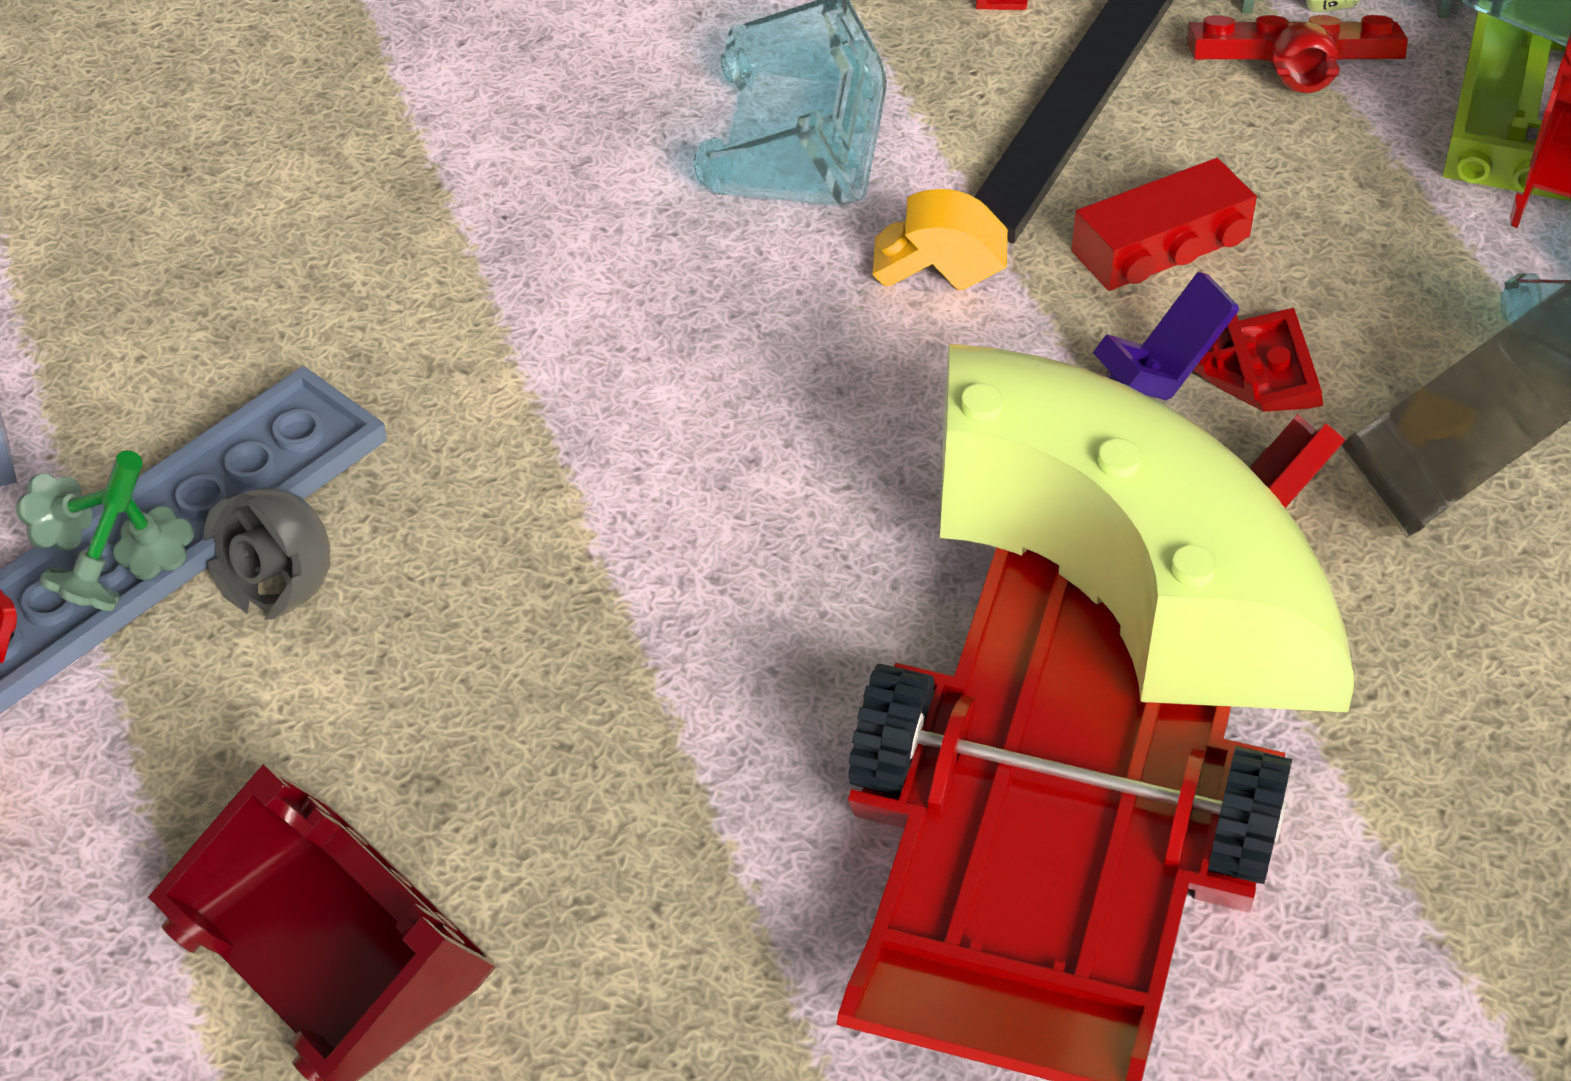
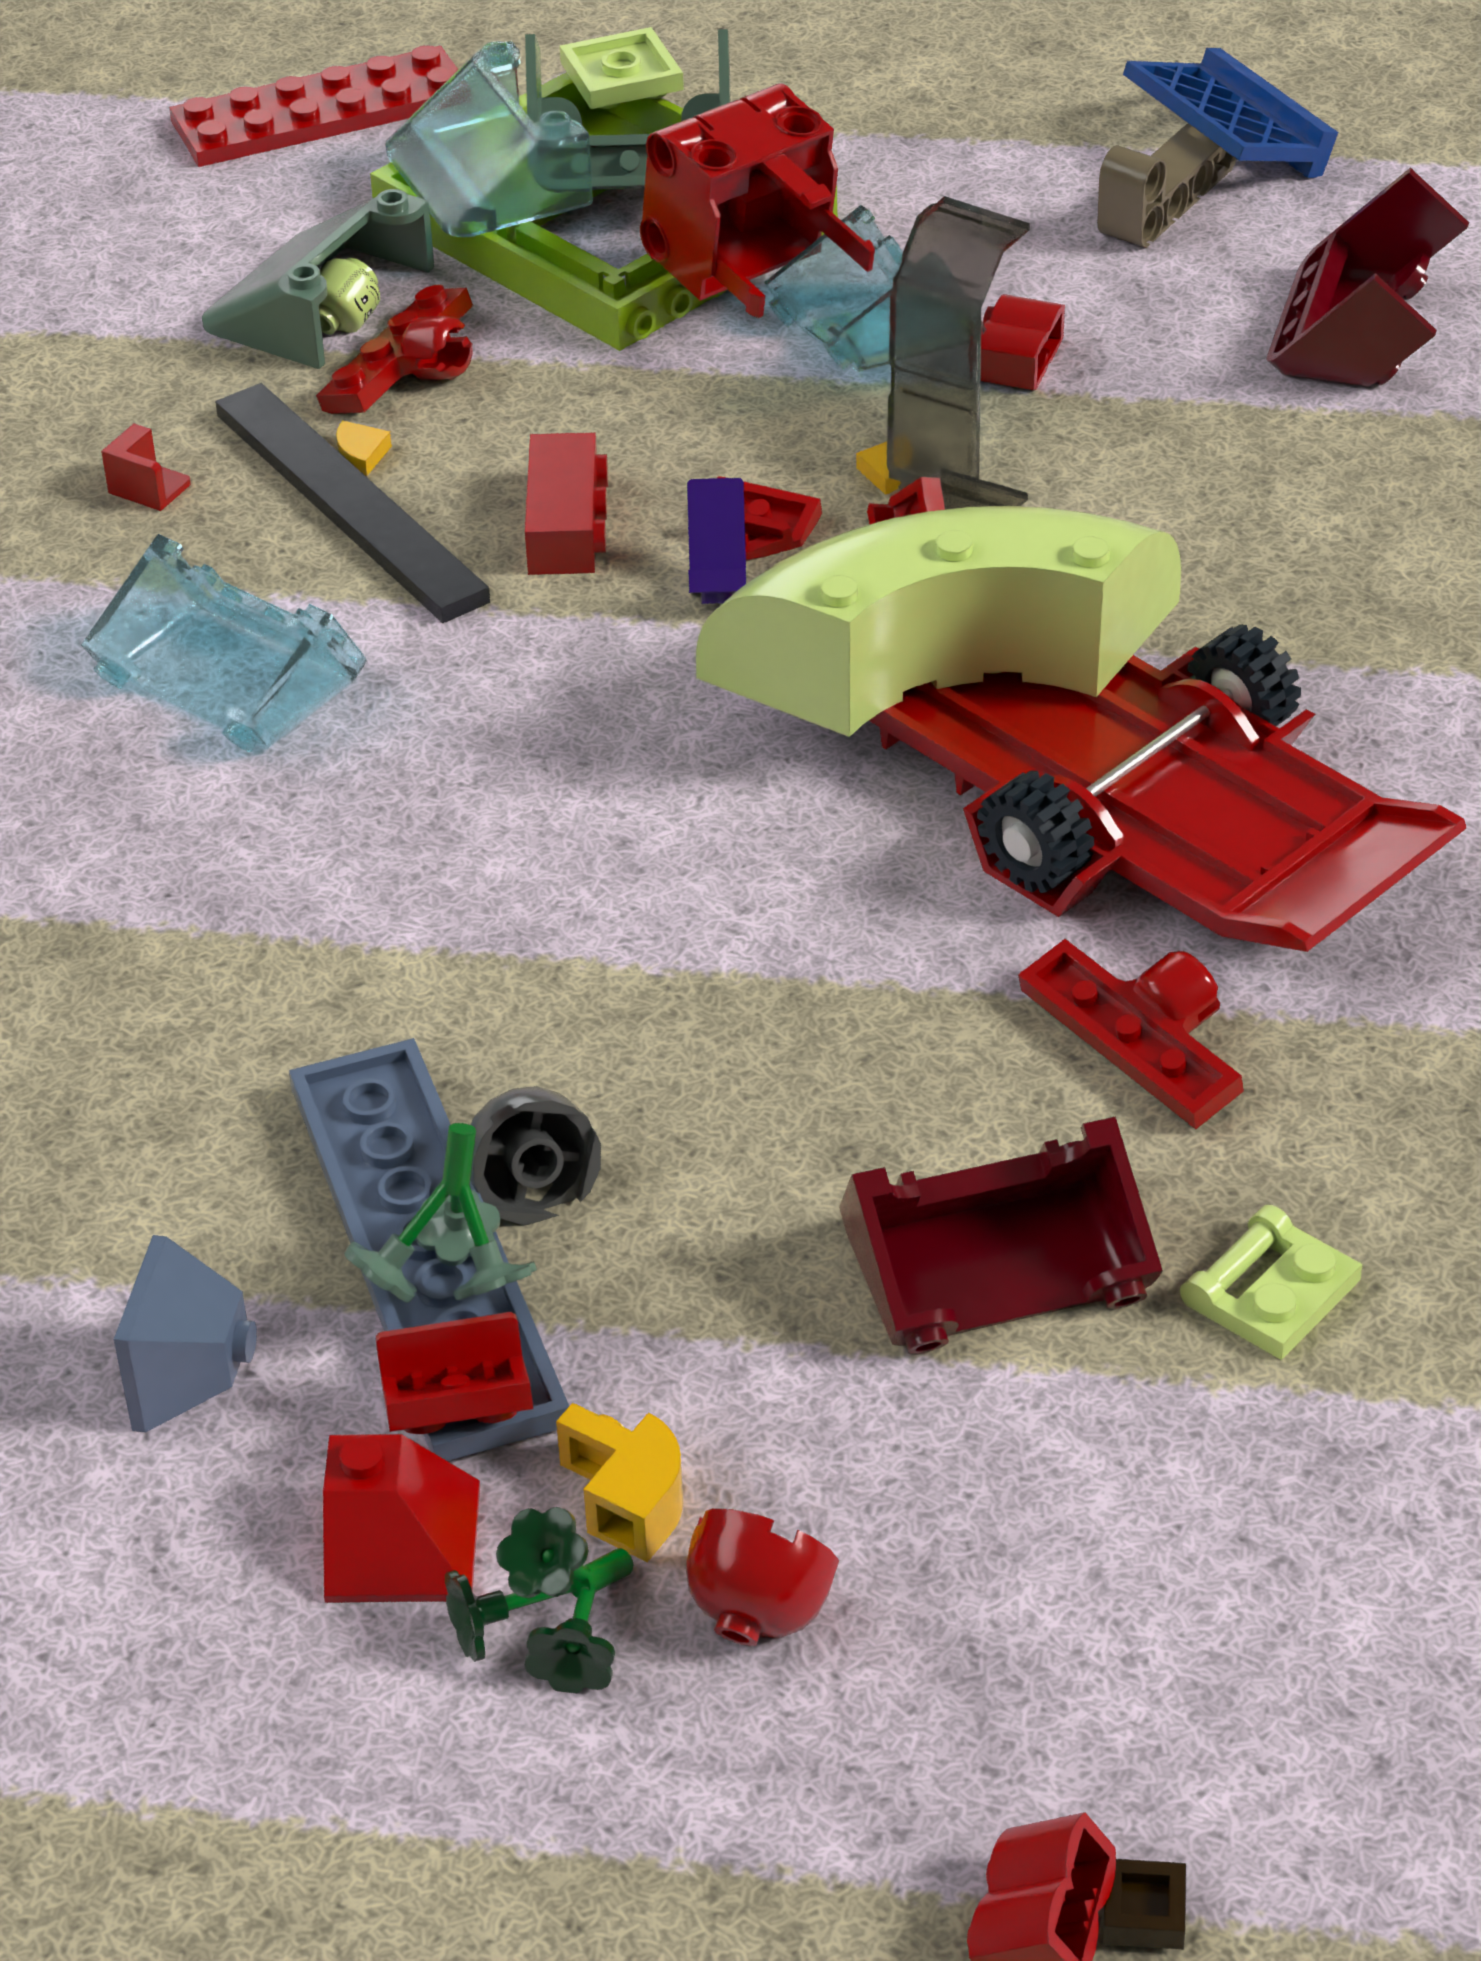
camera: 60 degrees left, 5 degrees down
(705, 938) = (1141, 1024): none -> red plate
(946, 231) = (476, 621): yellow brick -> none
(1150, 78) = (362, 445): none -> yellow tile

